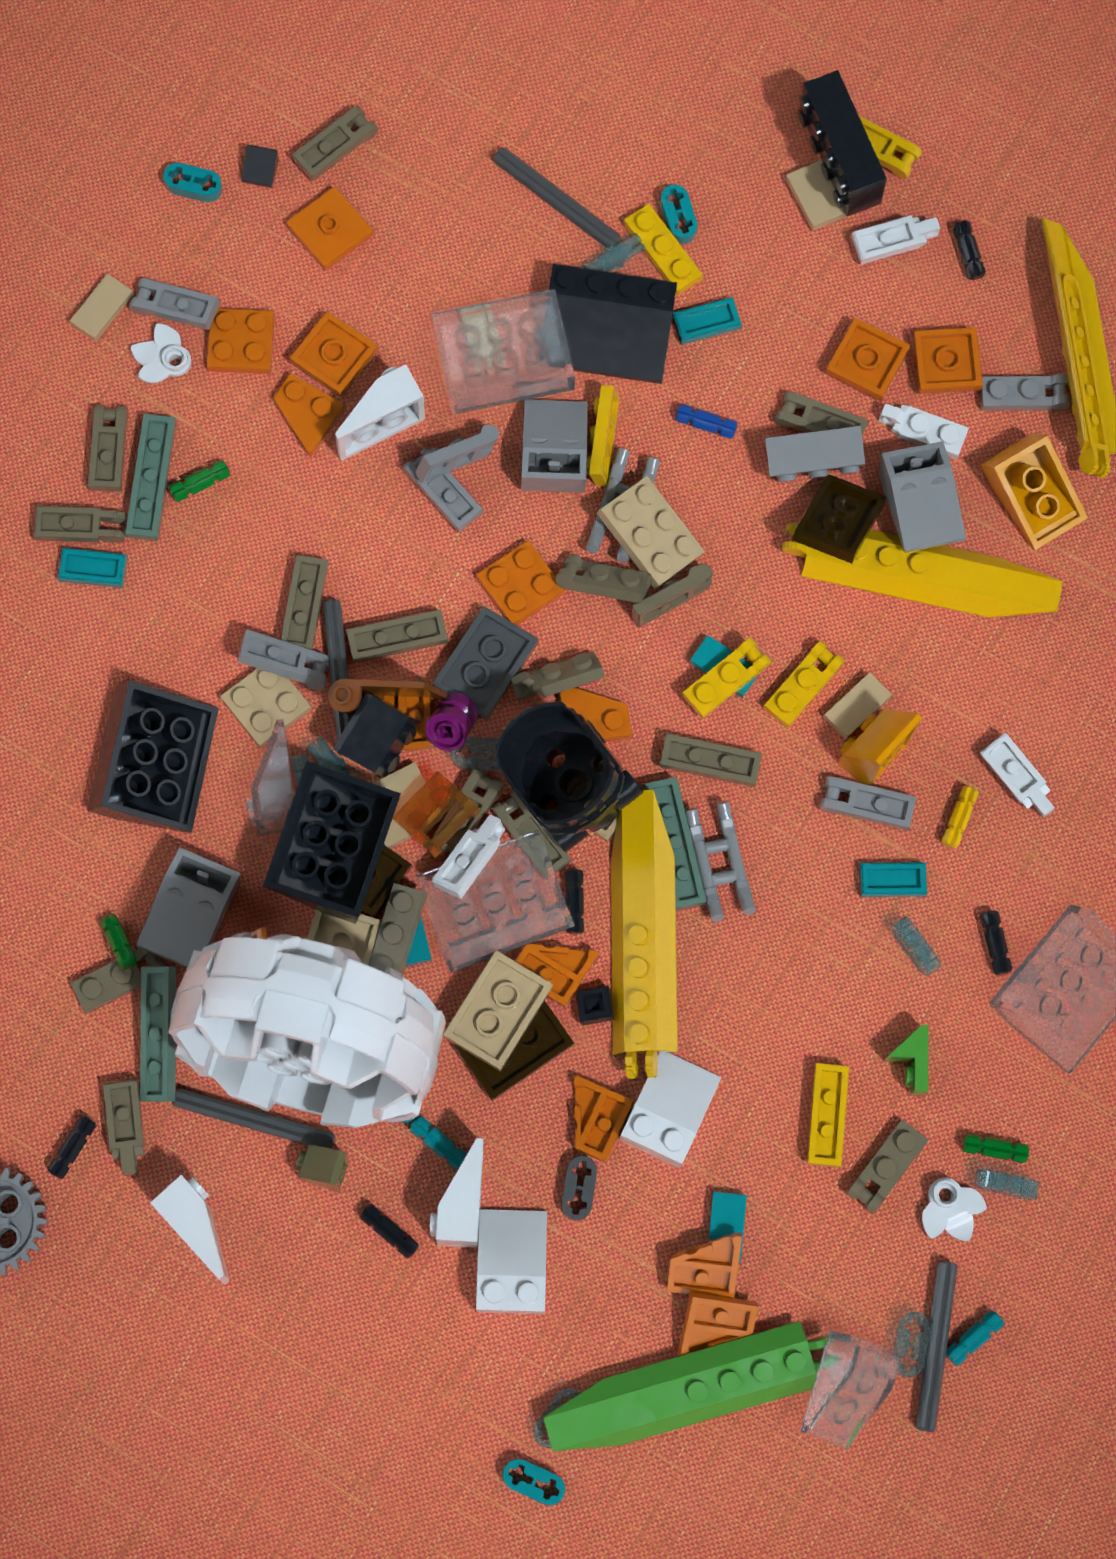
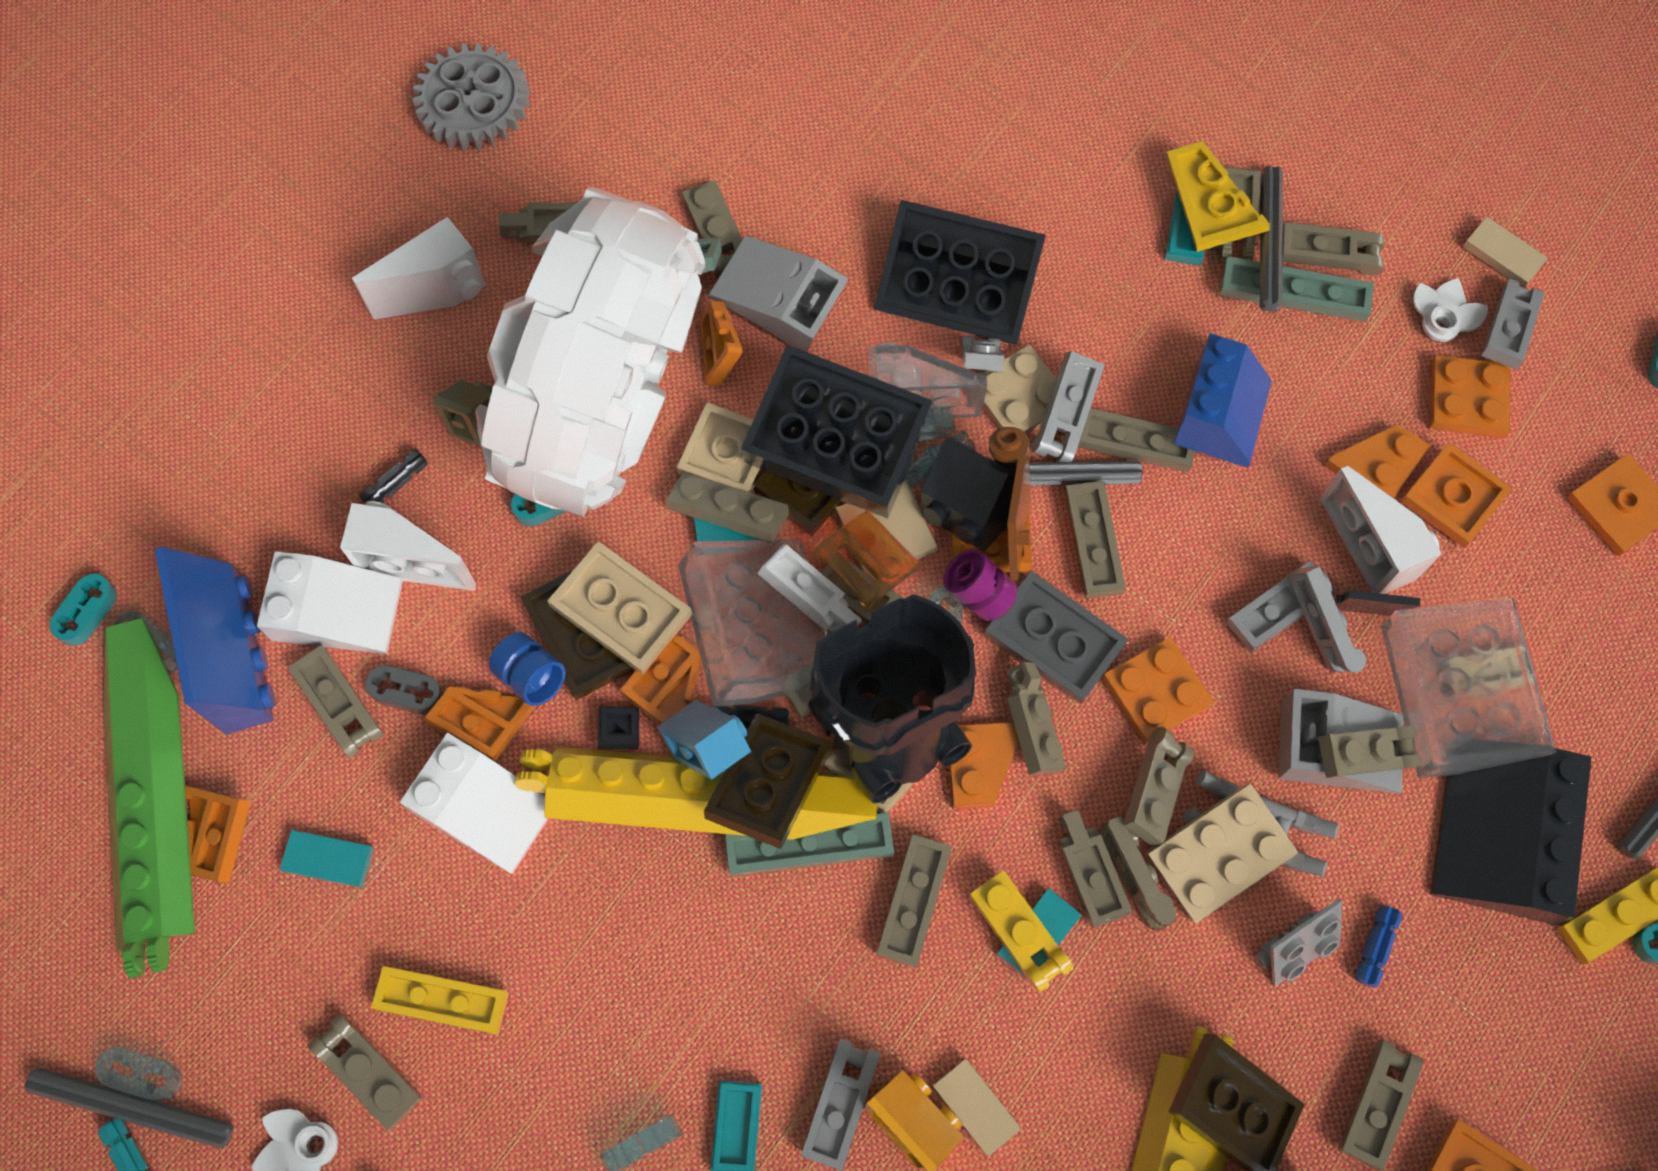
camera: 100 degrees right, 5 degrees down
(71, 1147) = (539, 174): black axle -> none
(72, 547) = (1210, 199): none -> yellow wing
(106, 496) = (1271, 241): none -> dark grey axle
(118, 941) = (753, 223): green axle -> none
(199, 480) = (1292, 341): green axle -> none
(244, 731) = (982, 354): none -> light grey plate
(269, 534) = (1225, 402): none -> blue slope
(438, 1142) = (486, 536): teal axle -> none
(439, 416) = (1374, 602): none -> piece
(556, 1082) = (527, 669): none -> blue wheel
(560, 1341) = (215, 640): none -> blue slope
(564, 422) = (1368, 751): none -> dark tan plate
(594, 1244) = (334, 700): none -> dark tan plate
(603, 435) = (1356, 807): yellow plate -> none
(606, 925) = (705, 738): none -> dark azure brick
(616, 256) = (1609, 850): clear light blue pin -> none
(634, 872) = (769, 784): none -> dark brown plate
(673, 628) = (1092, 872): none -> dark tan hinge
(706, 460) = (1311, 937): none -> light grey hinge
(706, 1268) = (277, 825): orange wing -> none
(707, 320) = (1522, 963): teal tile -> none
(728, 843) = (759, 885): light grey piece -> none
(803, 685) = (1009, 1037): yellow plate -> none
(815, 453) = (1332, 1086): light grey brick -> none
(848, 1388) = (95, 982): clear slope -> none
(914, 1051) = (503, 1124): bright green slope -> none

